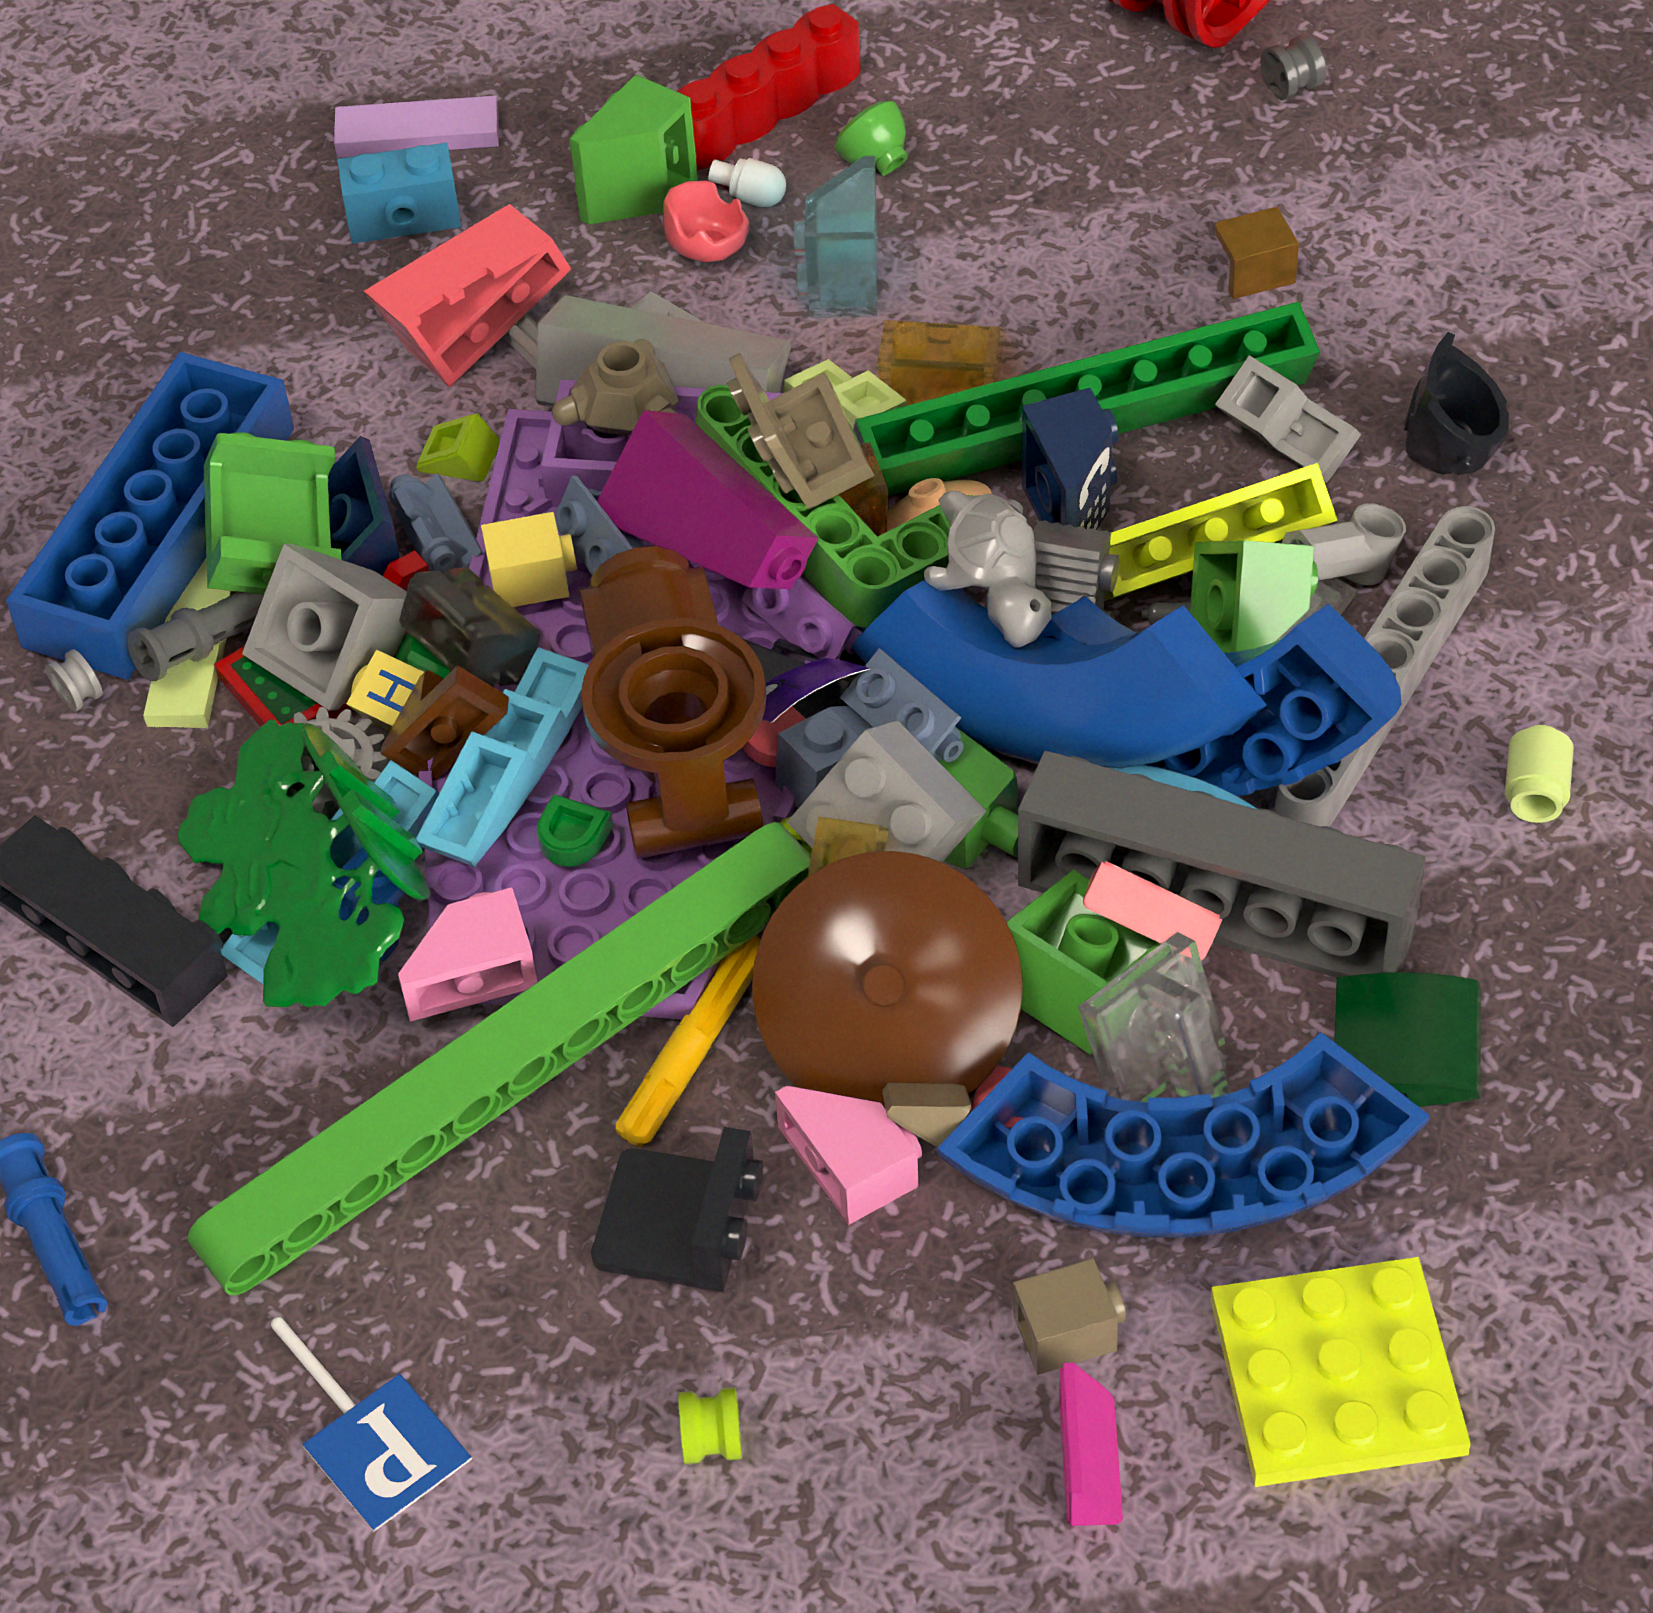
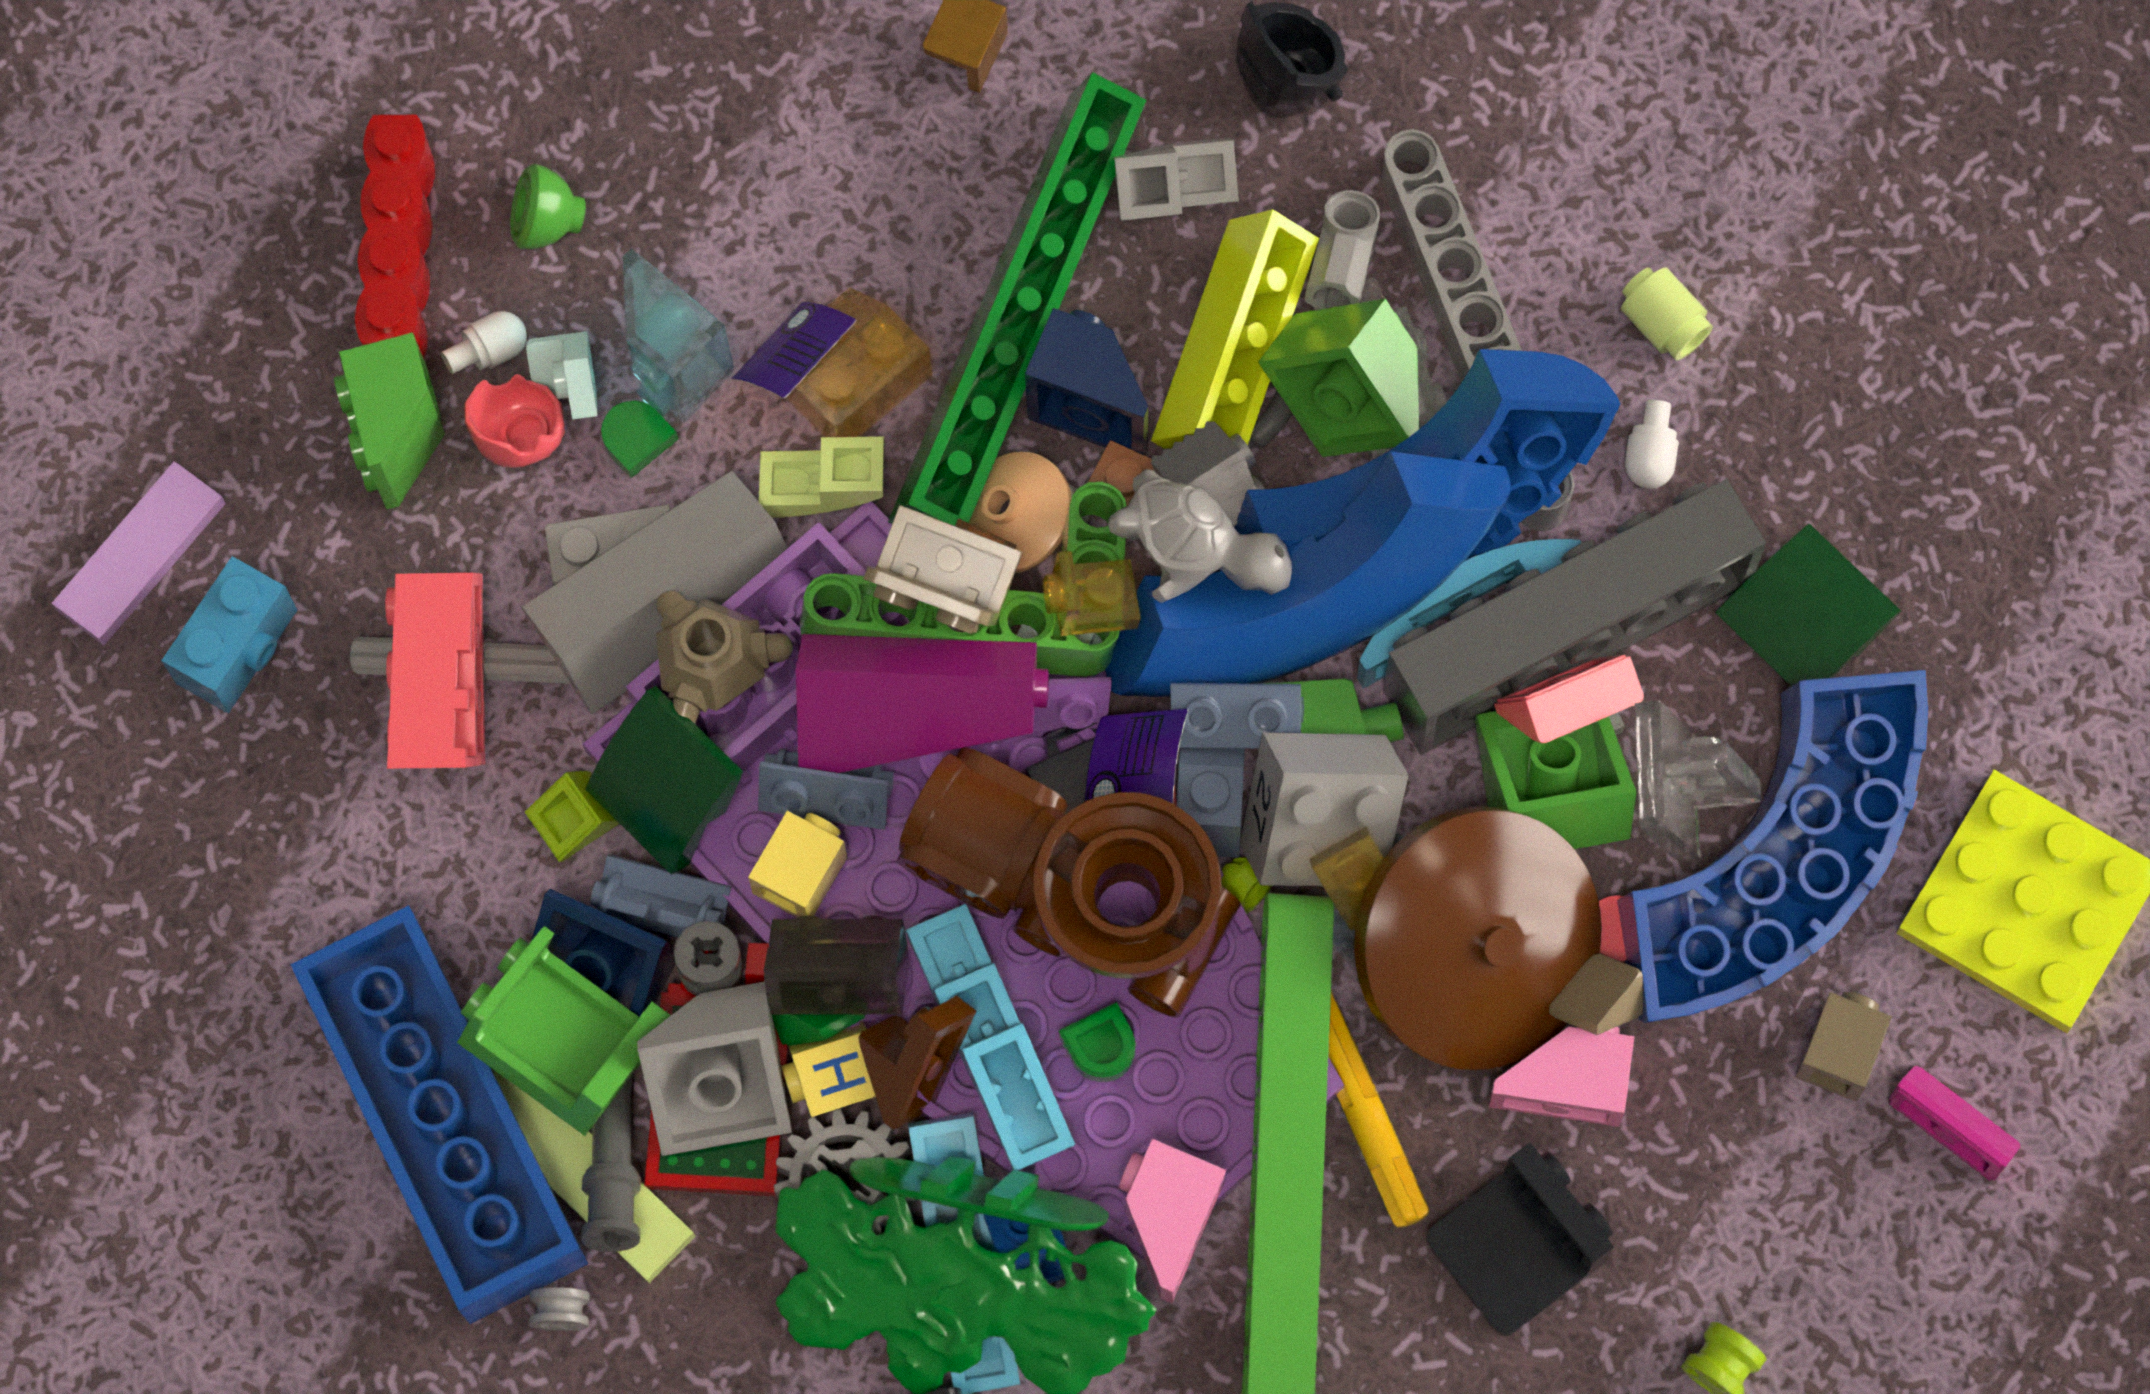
camera: 50 degrees left, 20 degrees up
(402, 552) = (713, 970): none -> dark grey wheel
(514, 447) = (663, 780): none -> dark green slope
(768, 296) = (636, 435): none -> green tile
(770, 224) = (567, 369): none -> light aqua bracket
(887, 542) = (1091, 595): none -> clear yellow bracket
(918, 314) = (795, 348): none -> dark purple sticker
(1432, 838) = (1652, 447): none -> white cylinder

